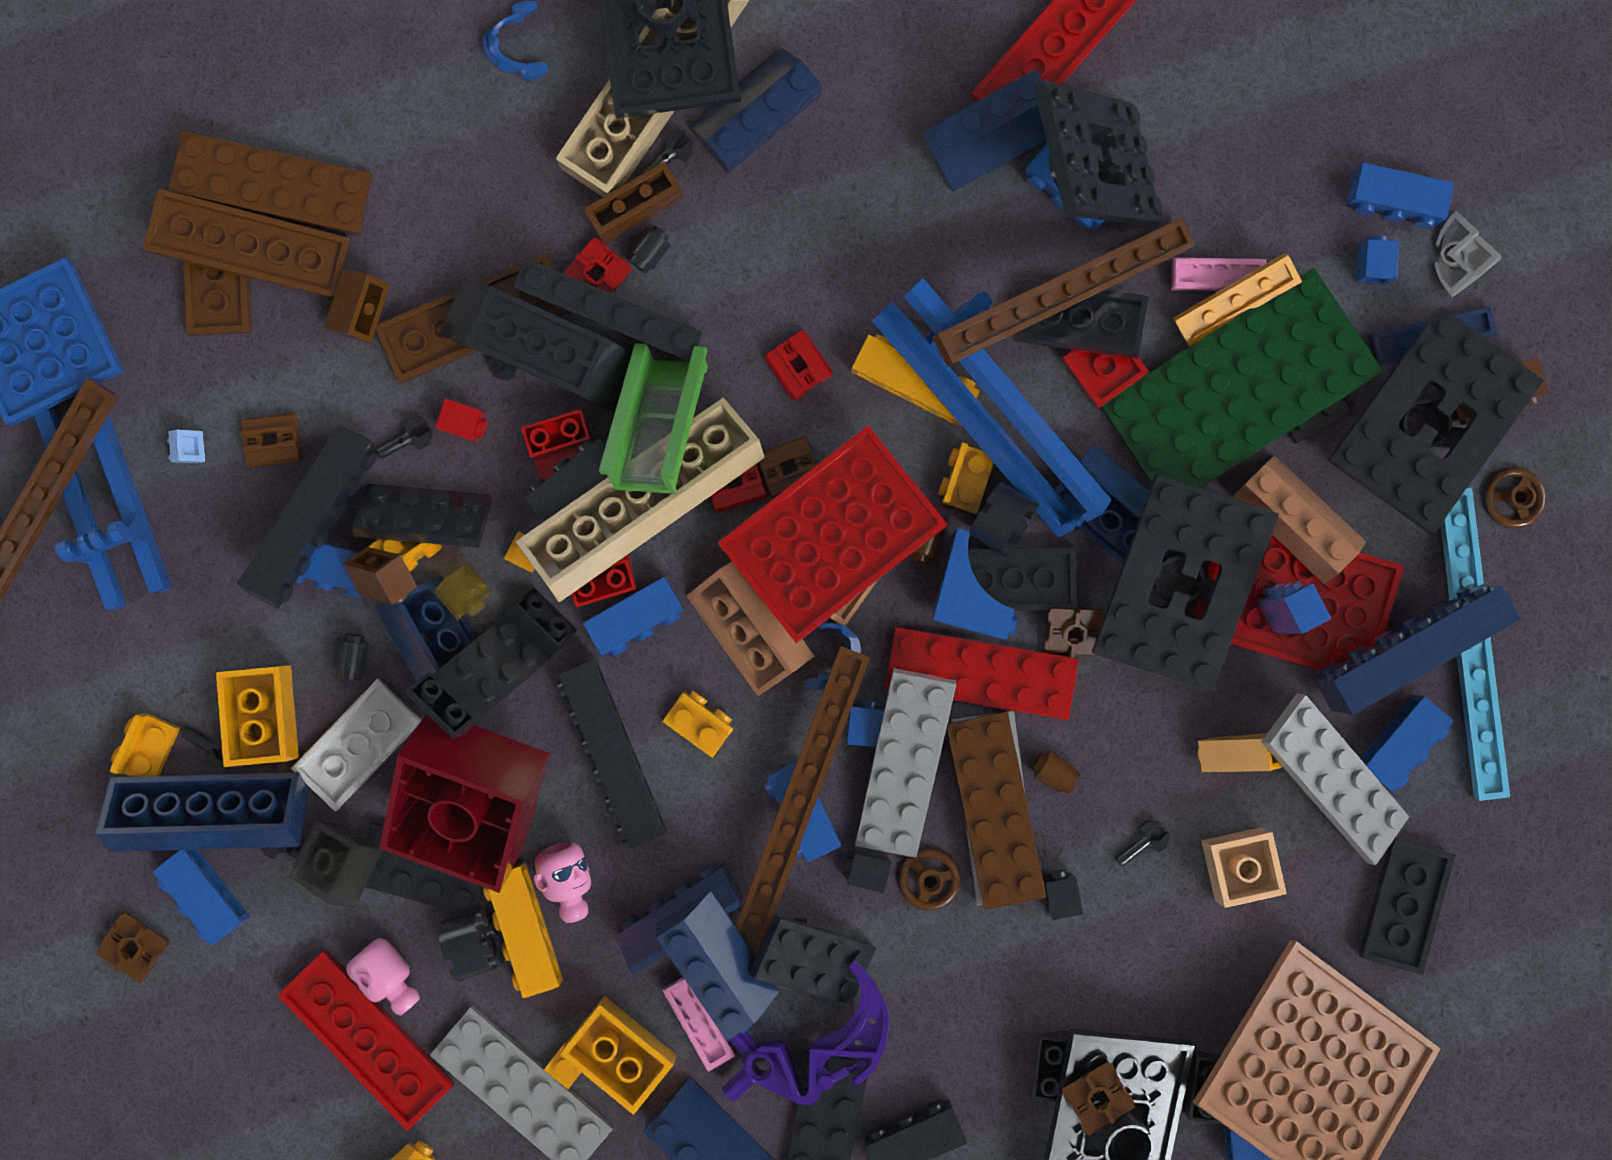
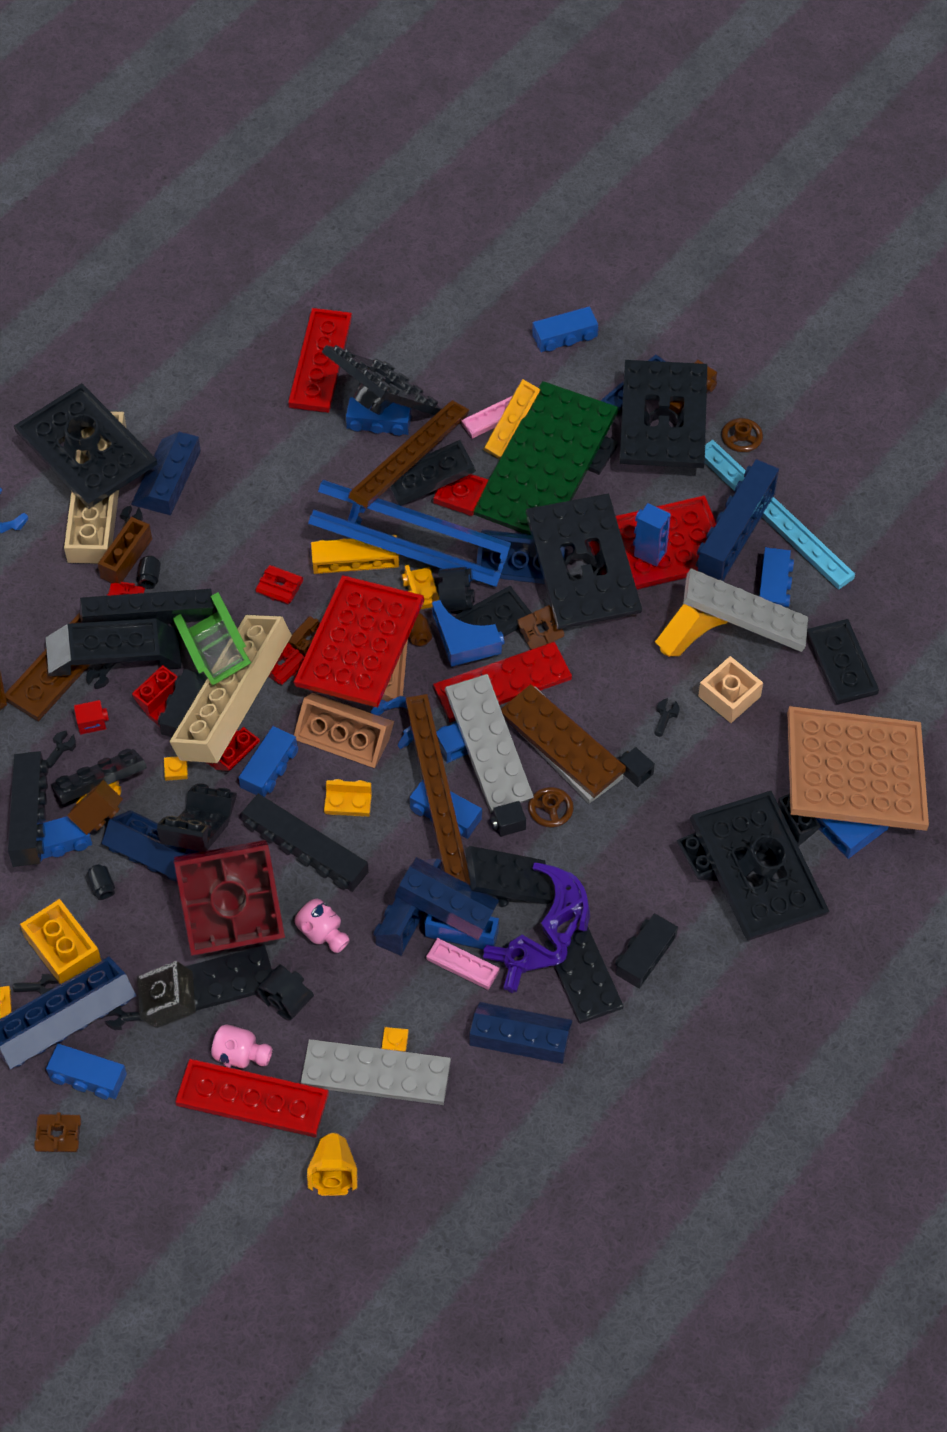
camera: 30 degrees left, 30 degrees down
(357, 744) = (137, 930): white tile -> none
(463, 592) = (151, 804): clear yellow brick -> none
(524, 934) = (319, 975): light orange brick -> none
(618, 1055) = (424, 1004): light orange brick -> none
(988, 132) = (313, 410): dark blue slope -> none
(1055, 772) = (584, 705): reddish brown brick -> none
(1104, 1112) = (732, 851): reddish brown piece -> none
(1304, 520) = (629, 500): nougat slope -> none
(1377, 261) = (577, 364): blue brick -> none
(1462, 255) = (622, 340): light grey brick -> none

